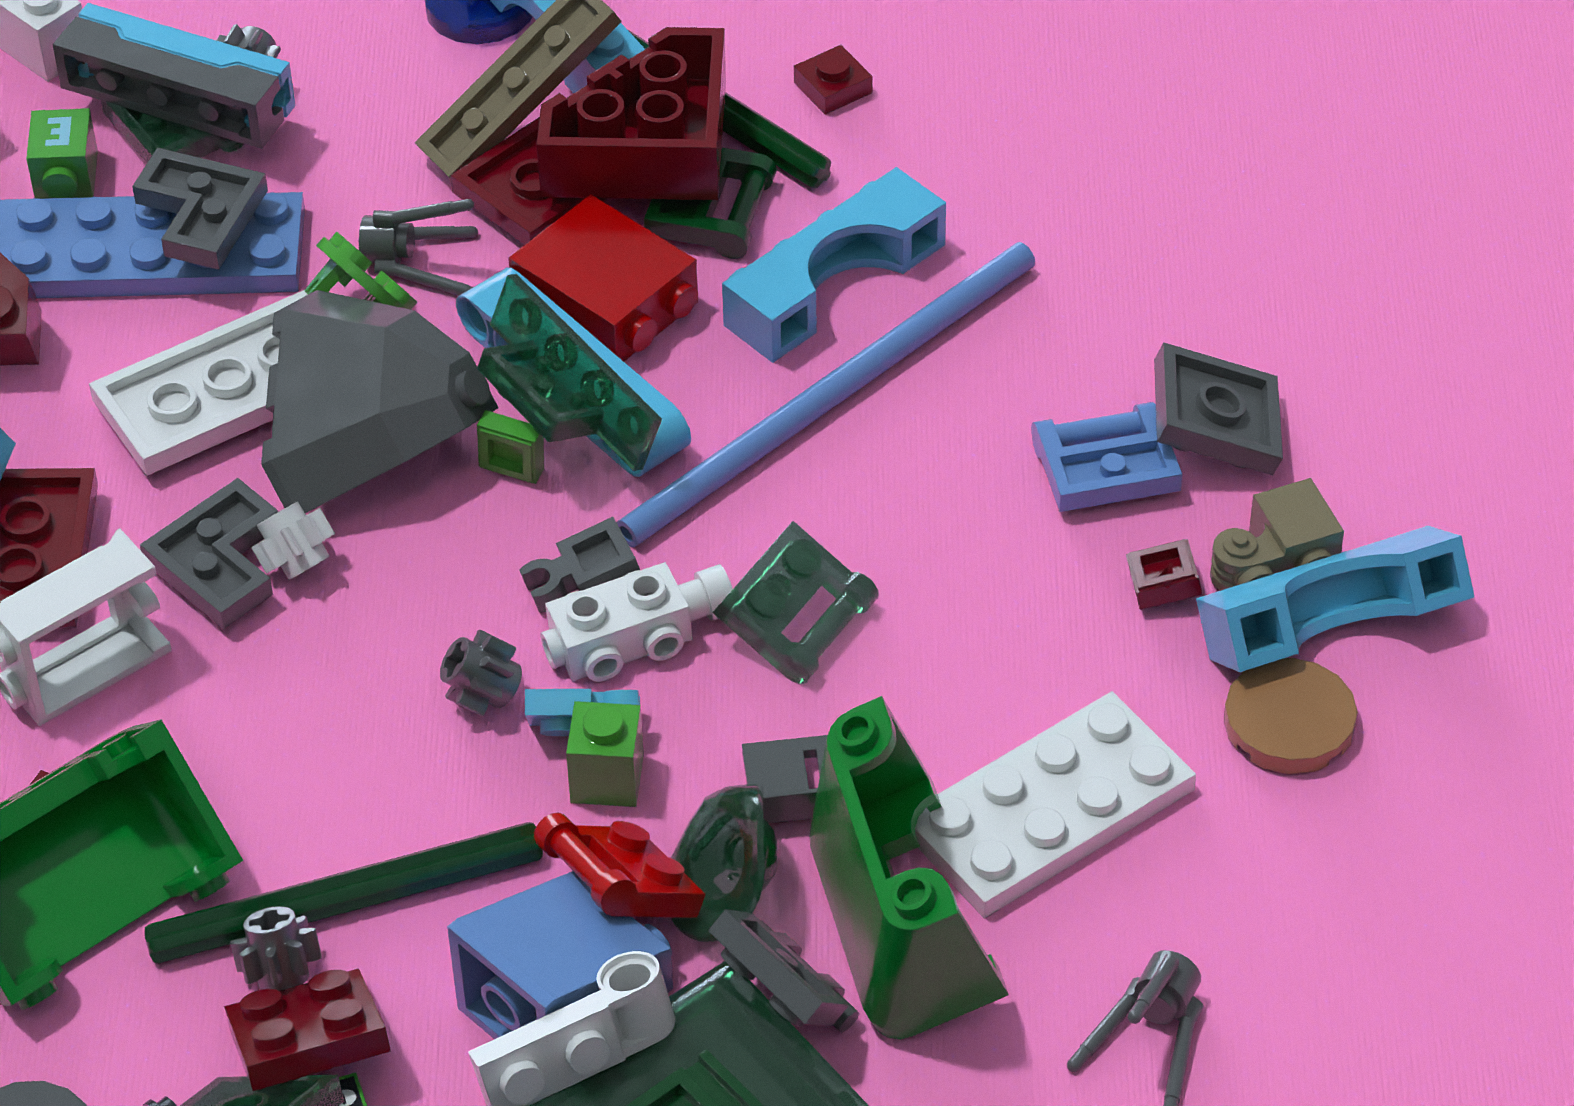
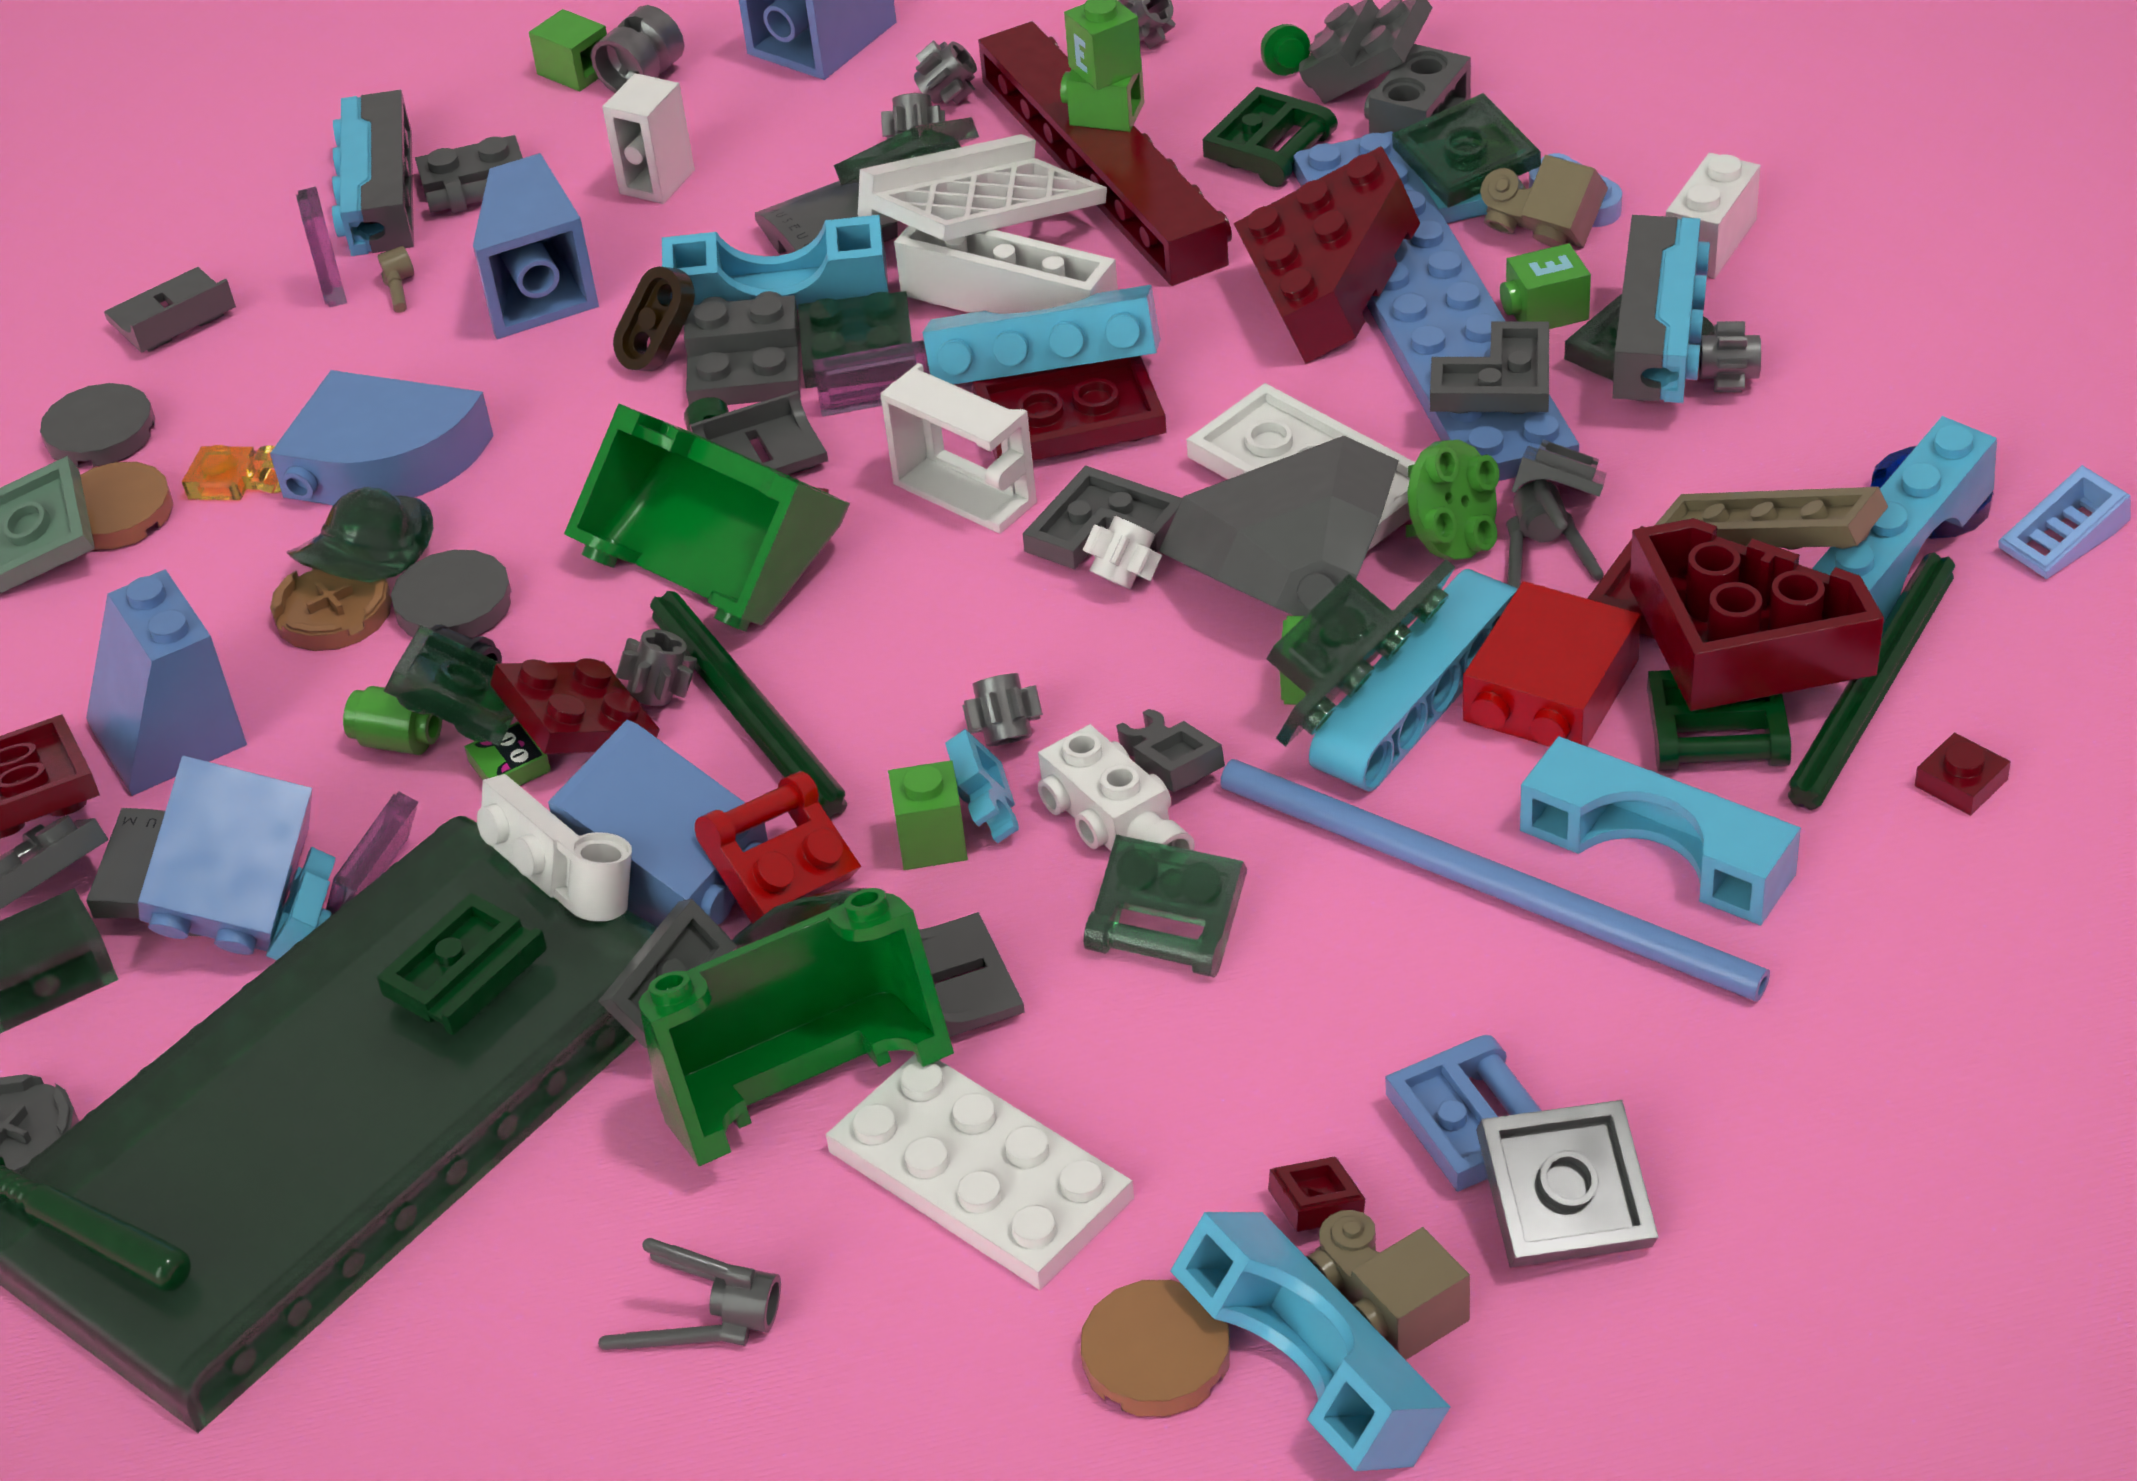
camera: 80 degrees right, 5 degrees down
(353, 208) = (1560, 465): none -> dark grey piece

